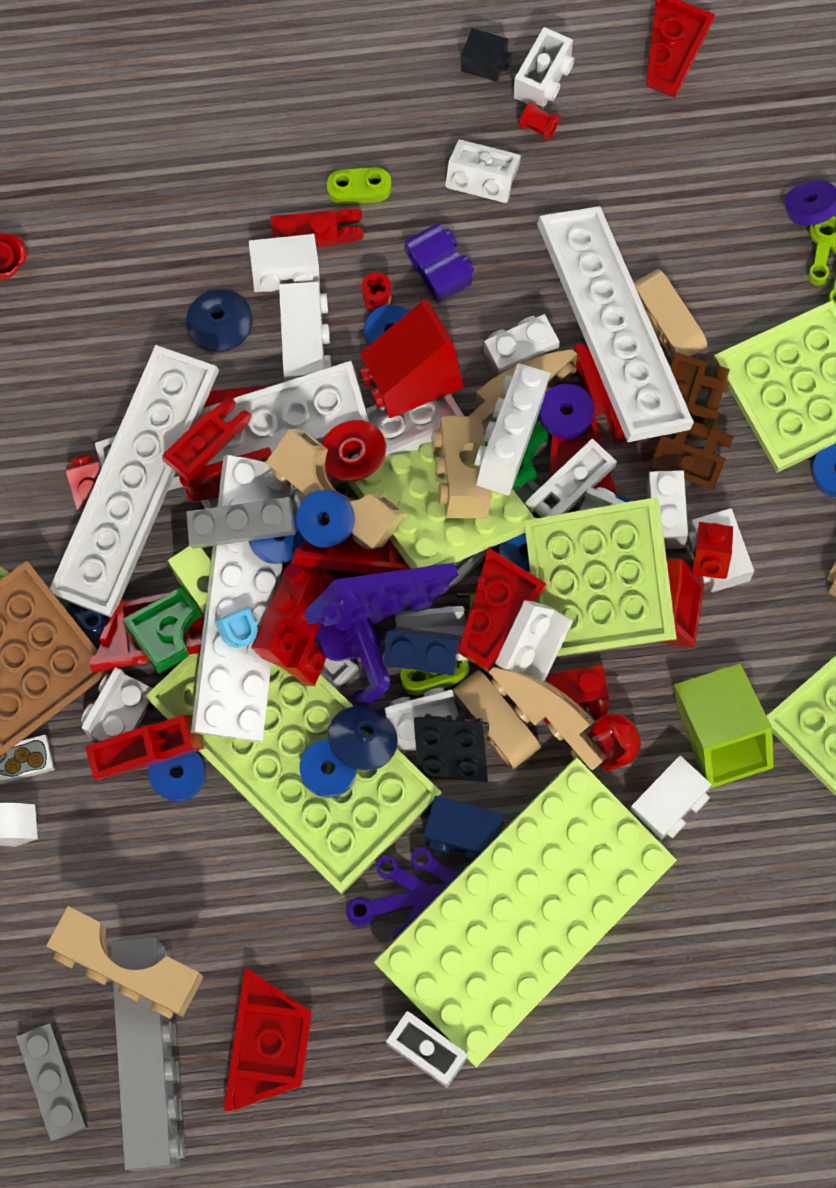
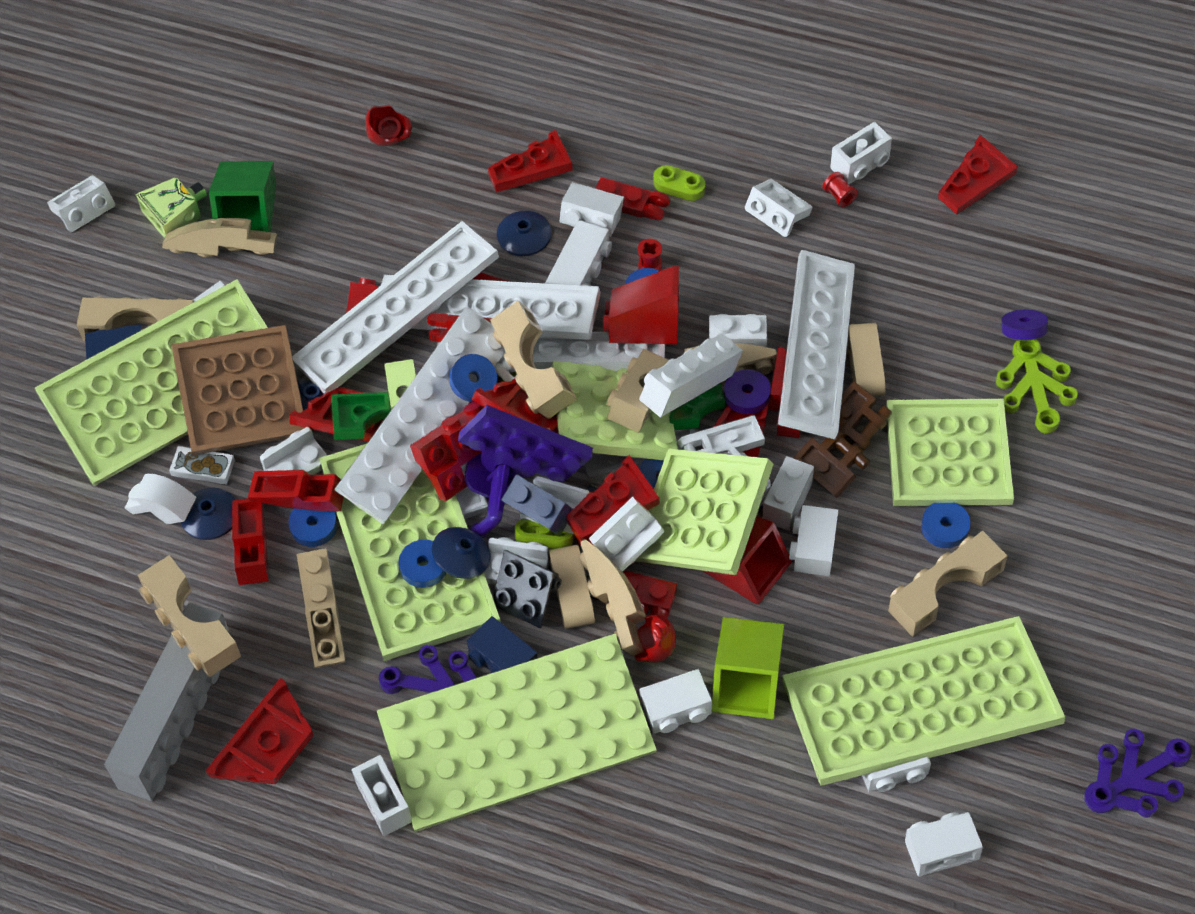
camera: 25 degrees right, 15 degrees down
(51, 1082) = (94, 696): light grey plate -> none
(71, 816) = (213, 522): none -> dark blue dish
(121, 827) = (249, 542): none -> red slope
(188, 230) = (536, 163): none -> red wing
(205, 439) = (459, 294): red hinge -> none
(238, 628) = (407, 427): medium azure tile -> none
(240, 522) = (448, 353): light grey plate -> none
(245, 870) = (321, 608): none -> tan slope
(310, 518) = (501, 369): blue piece -> none
(351, 439) = (563, 345): red dish -> none
(438, 262) = (708, 254): dark purple brick -> none
(485, 55) = (822, 129): black brick -> none
(713, 550) = (803, 529): red bracket -> none

